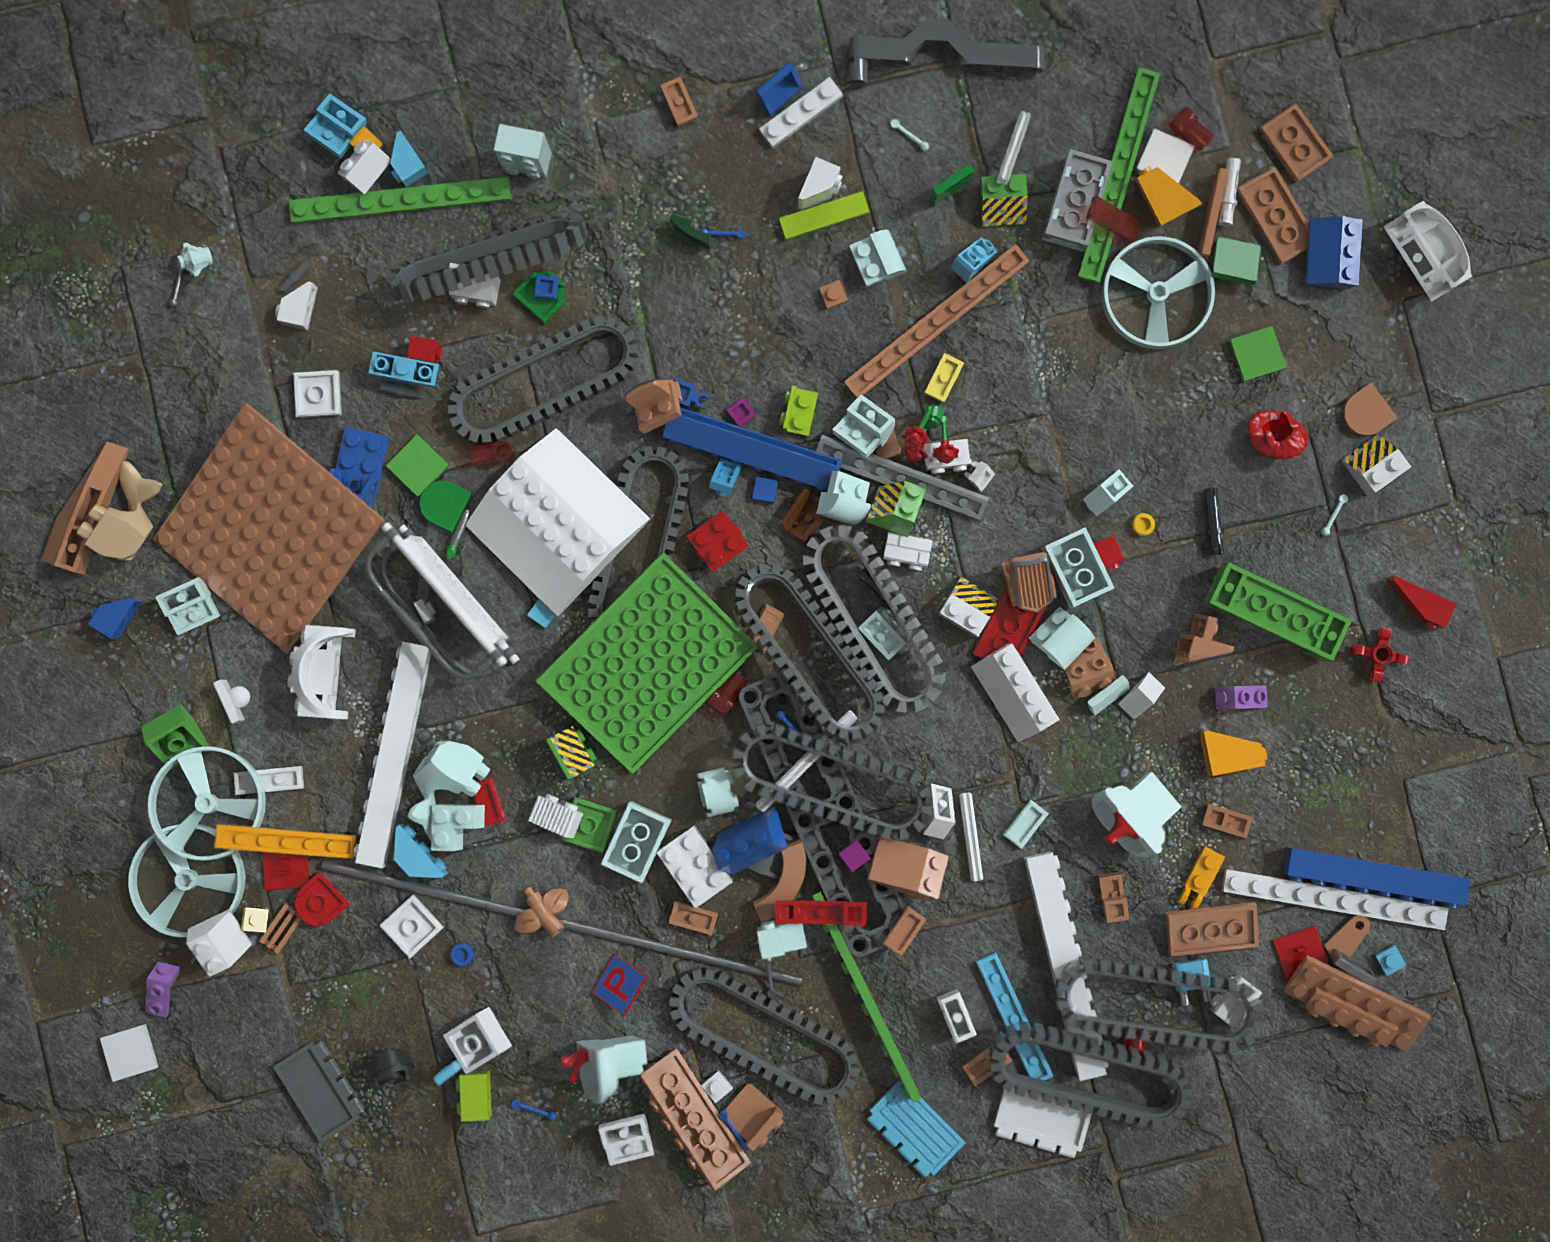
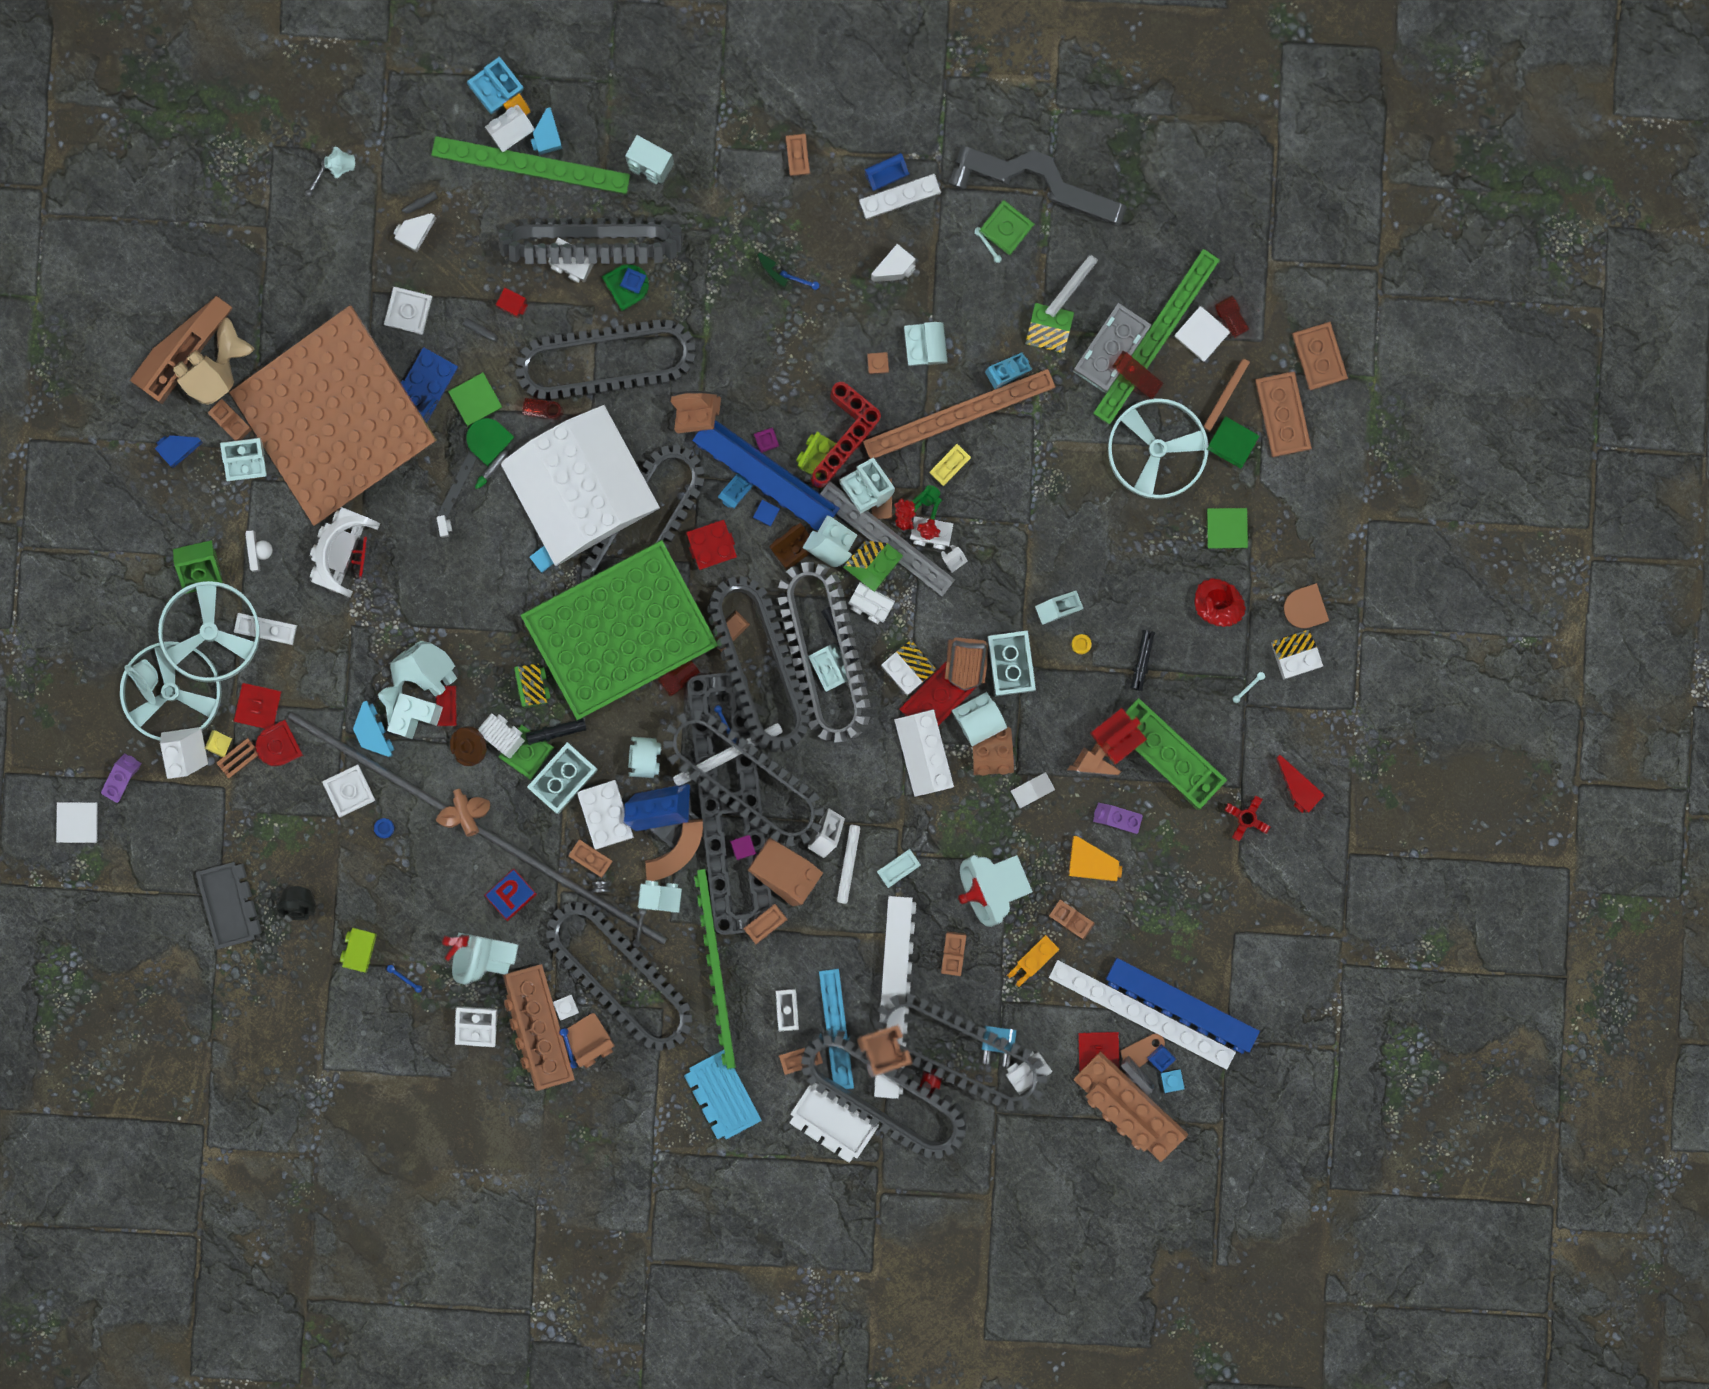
camera: 15 degrees right, 0 degrees up
(152, 873) = (145, 678): none -> light aqua piece
(162, 569) = (229, 420): none -> nougat slope
(284, 841) = (266, 684): light orange tile -> none
(347, 672) = (362, 558): none -> red piece
(393, 755) = (379, 639): white brick -> none
(404, 370) = (489, 314): medium azure slope -> none
(447, 1072) = (345, 920): medium azure tile -> none
(451, 592) = (472, 517): piece -> none
(477, 1040) = (375, 903): white slope -> none
(524, 838) = (468, 746): none -> reddish brown tile
(618, 790) = (560, 730): none -> black pin
(688, 394) = (726, 411): blue plate -> none
(714, 944) = (601, 887): none -> flat silver bush
(820, 912) = (699, 885): red slope -> none
(824, 216) = (892, 292): lime tile -> none
(829, 381) = (849, 437): none -> red beam
(923, 110) = (1006, 227): none -> bright green tile
(951, 185) = (1008, 301): green tile -> none
(1081, 1034) = (884, 1051): none -> nougat piece
(1108, 695) = (1004, 780): light aqua tile -> none
(1109, 553) = (1041, 659): red brick -> none
(1164, 195) = (1188, 367): light orange slope -> none
(1212, 929) = (1028, 1006): nougat tile -> none
(1222, 609) = (1118, 736): none -> red bracket
(1229, 194) = (1246, 383): white pin -> none
(1333, 252) = (1318, 461): blue slope -> none
(1371, 940) = (1161, 1058): none -> blue tile
(1430, 249) = (1401, 485): white piece -> none

